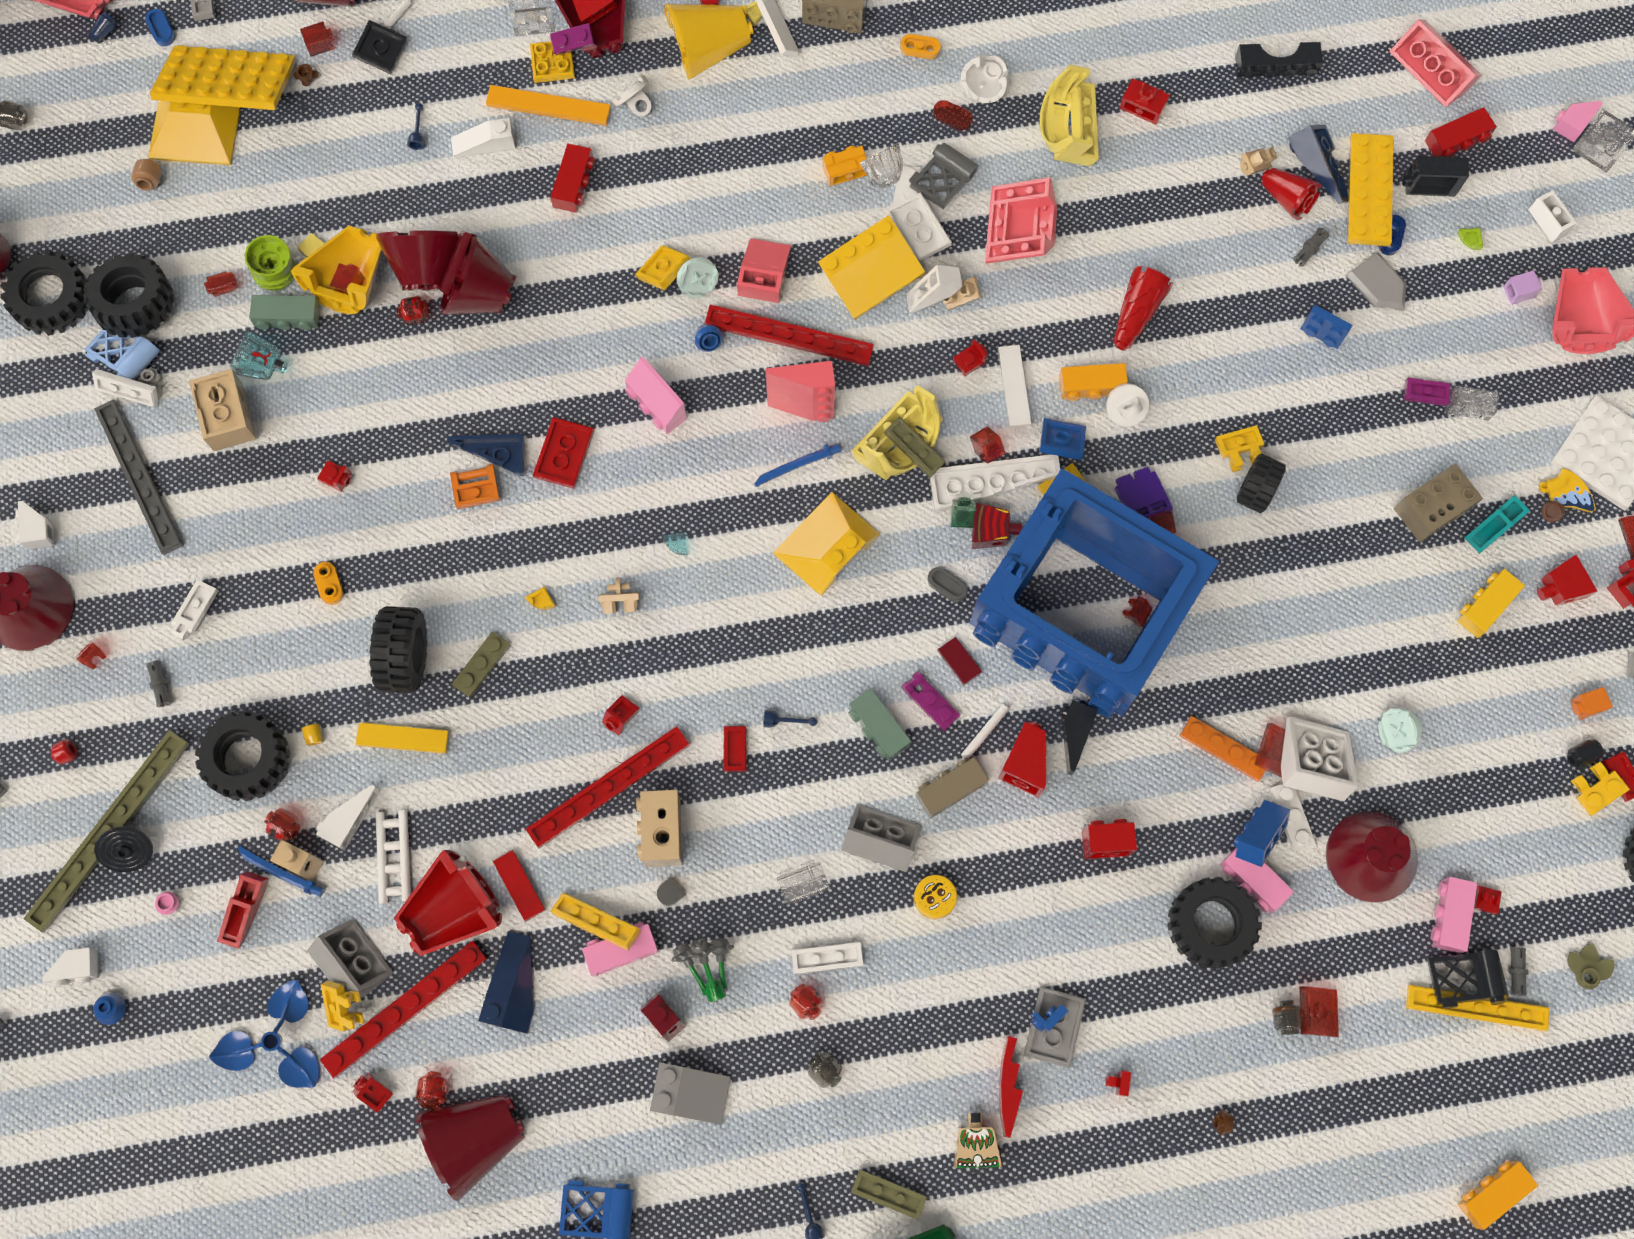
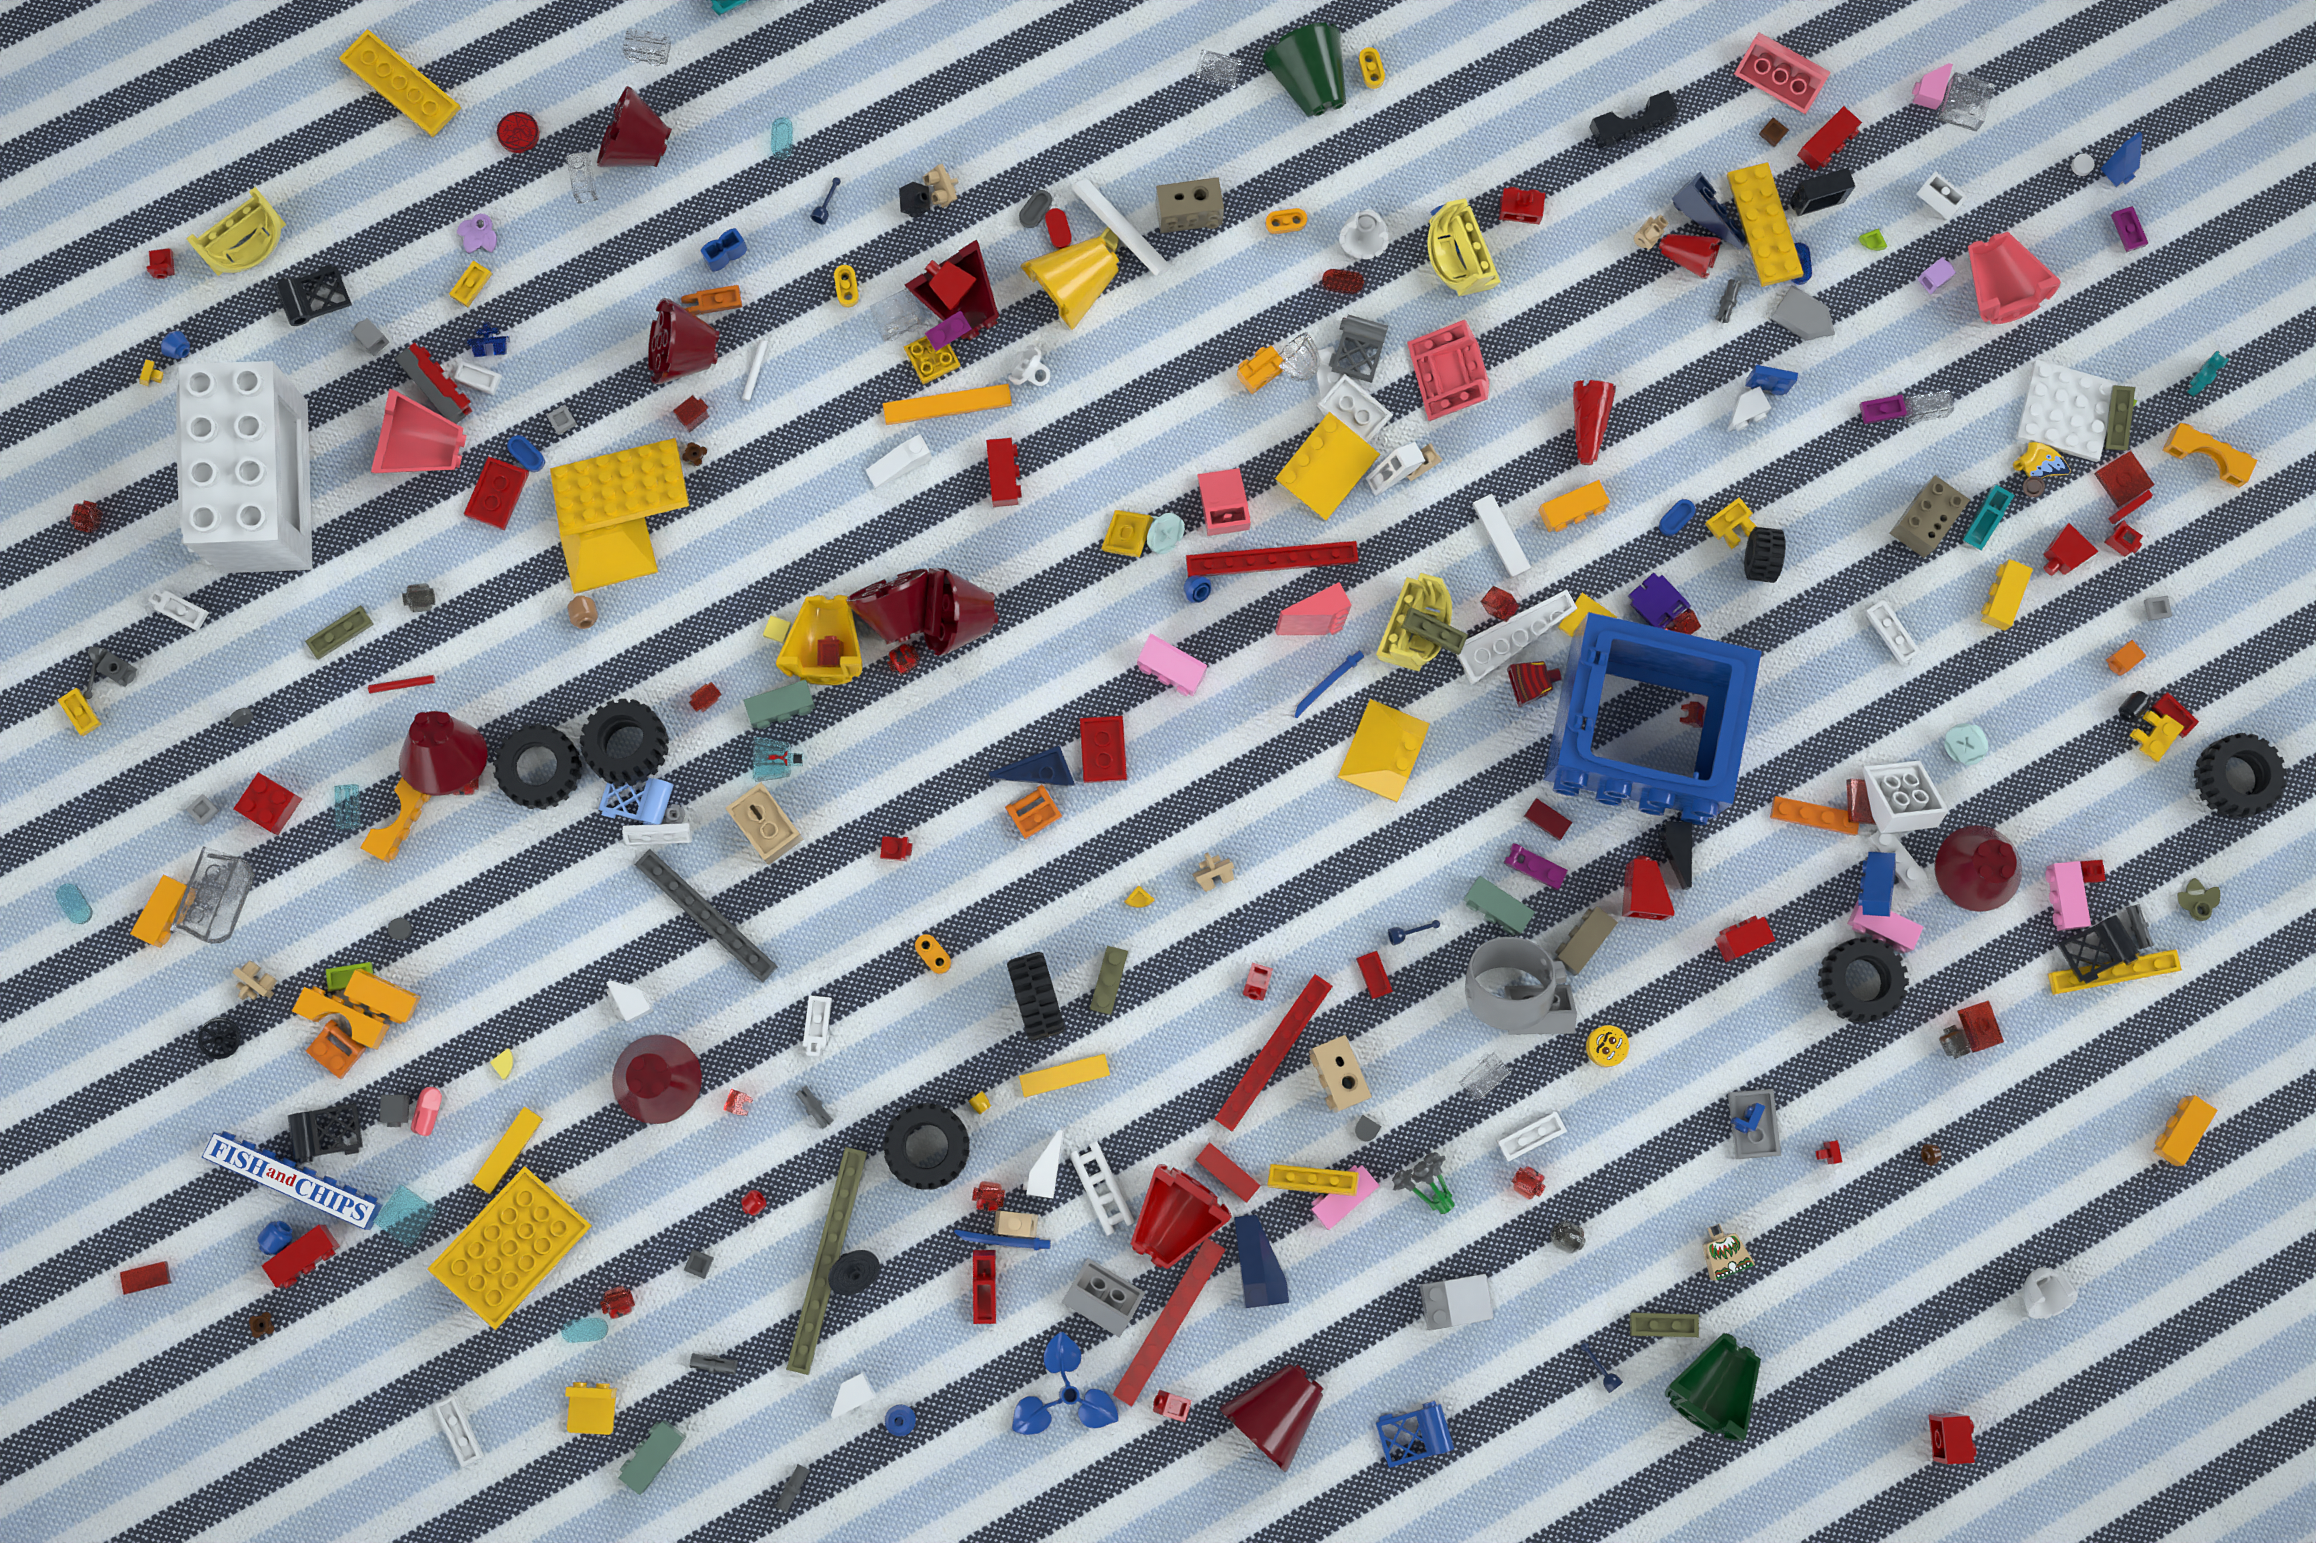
camera: 25 degrees left, 5 degrees up
(102, 27) = (469, 473): dark blue cone -> none
(119, 52) = (496, 493): none -> red tile
(166, 903) = (911, 1306): bright pink plate -> none
(270, 252) = (747, 649): lime wheel -> none
(336, 1006) = (1110, 1341): yellow plate -> none
(379, 47) = (756, 400): black tile -> none
(415, 139) = (832, 484): dark blue hinge -> none
(431, 1090) = (1226, 1384): clear red head -> none
(662, 1017) = (1404, 1242): dark red torso -> none
(676, 543) = (1244, 799): clear light blue tile -> none
(868, 771) = (1516, 954): none -> light grey cylinder
(947, 584) = (1510, 750): dark grey tile -> none
(962, 513) = (1500, 677): clear green bracket -> none
(971, 358) = (1451, 522): red bracket -> none
(985, 731) = (1595, 877): white bar -> none
(1008, 1095) = (1738, 1201): red slope -> none
(1062, 439) = (1566, 573): blue plate -> none
(1127, 404) = (1614, 519): white tile -> none
(1189, 425) = (1677, 517): none -> blue tile
(1296, 348) = (1749, 407): none -> white slope
(1363, 600) = (1892, 632): none -> white plate
(1409, 113) = (1773, 132): none -> reddish brown tile

